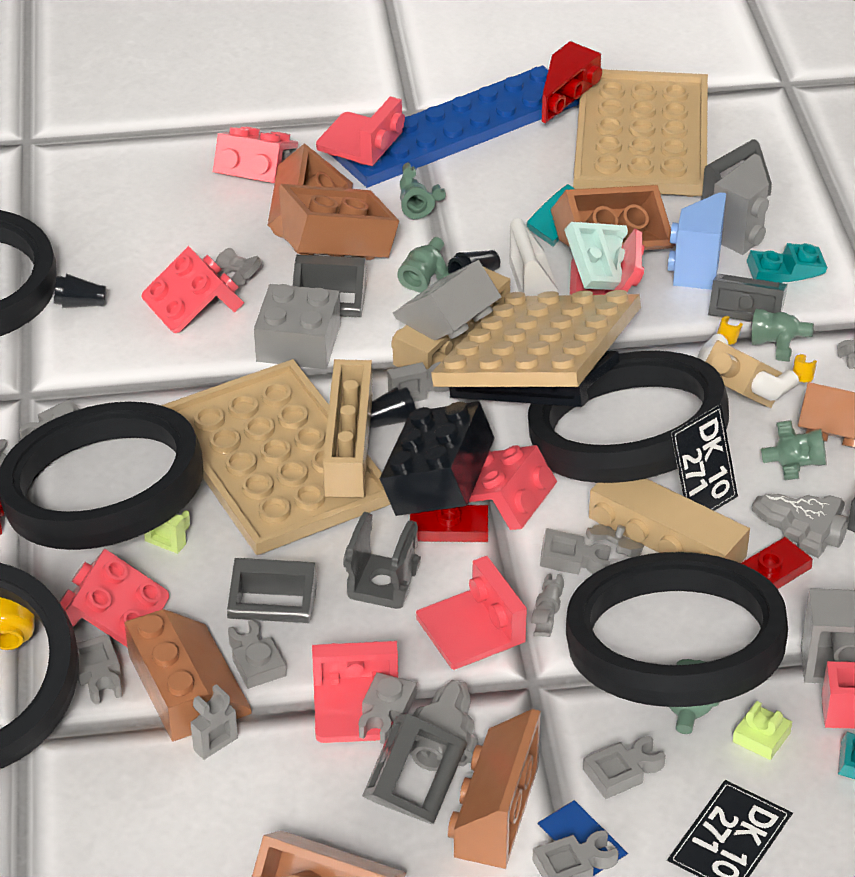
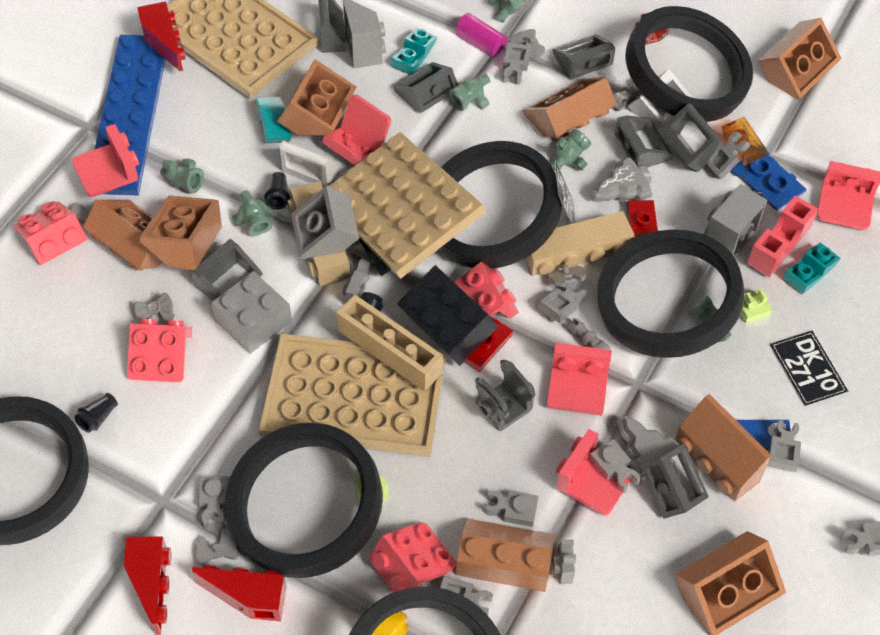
camera: 55 degrees left, 15 degrees up
(272, 578) = (485, 444): dark grey tile -> none
(597, 253) = (348, 127): light aqua wing -> none
(618, 770) = (736, 385): light grey plate -> none
(697, 243) = (377, 74): light blue slope -> none
(748, 374) = (497, 128): torso -> none

